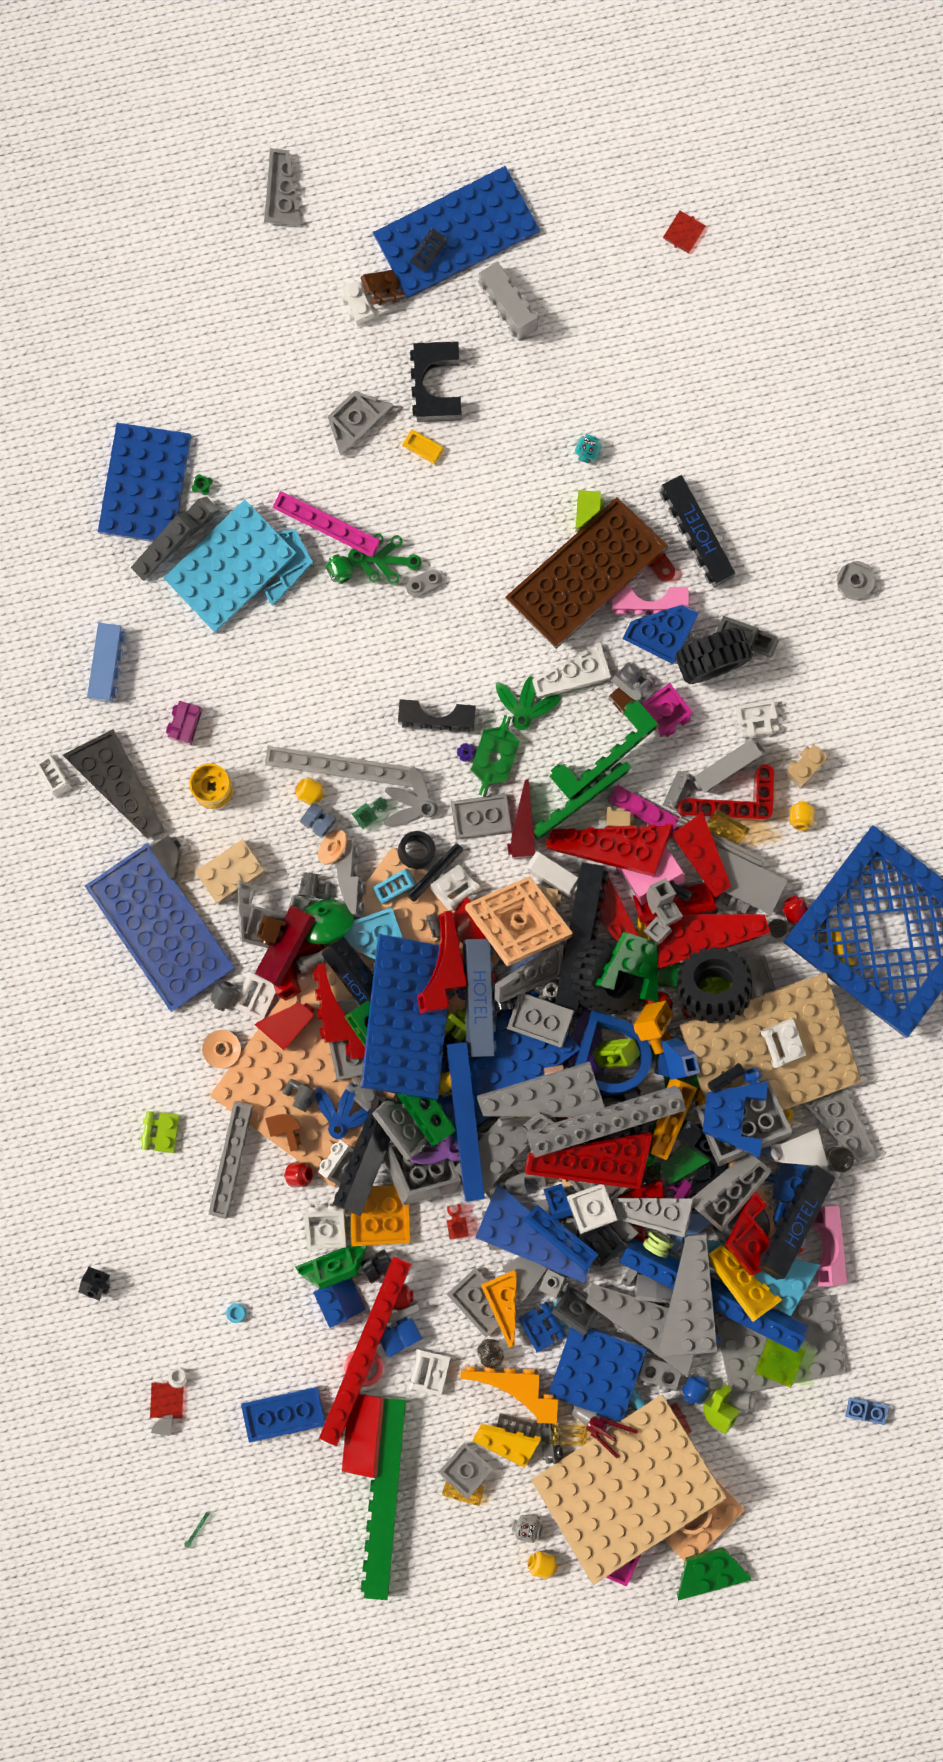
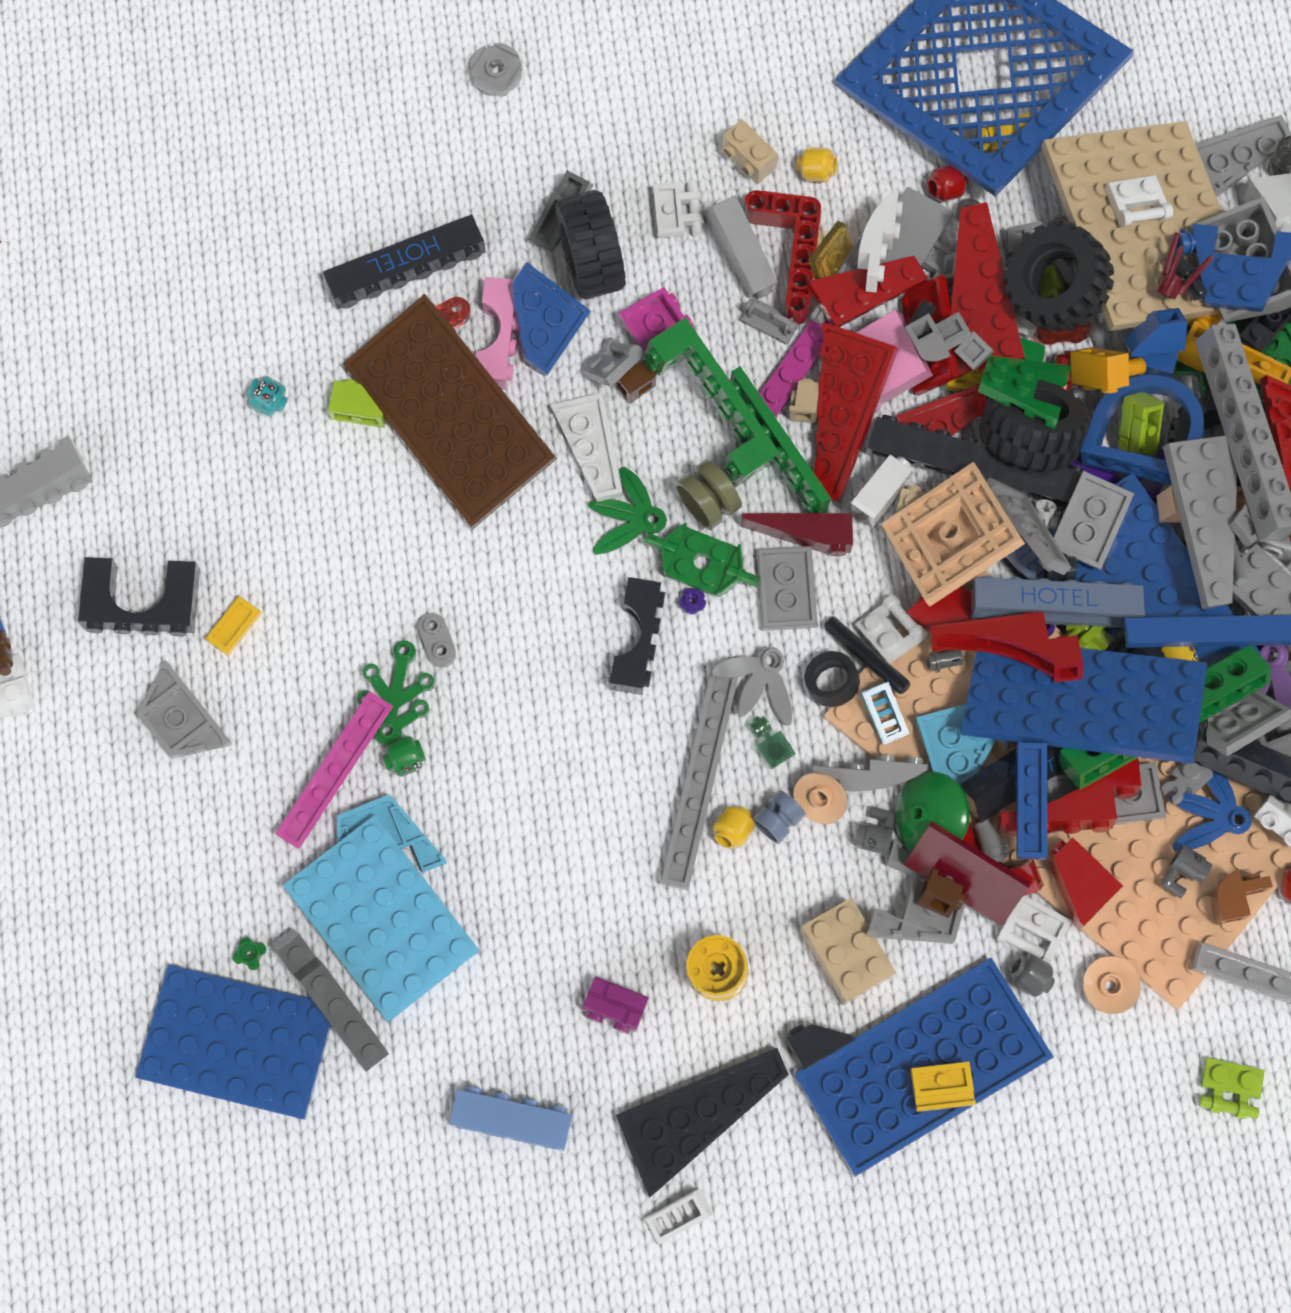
camera: 90 degrees left, 10 degrees down
(144, 938) = (942, 1086): none -> yellow plate
(331, 982) = (1031, 801): none -> blue plate
(537, 752) = (708, 494): none -> olive wheel
(716, 1065) = (1169, 283): none -> dark red plant
(743, 859) = (878, 238): none -> white slope

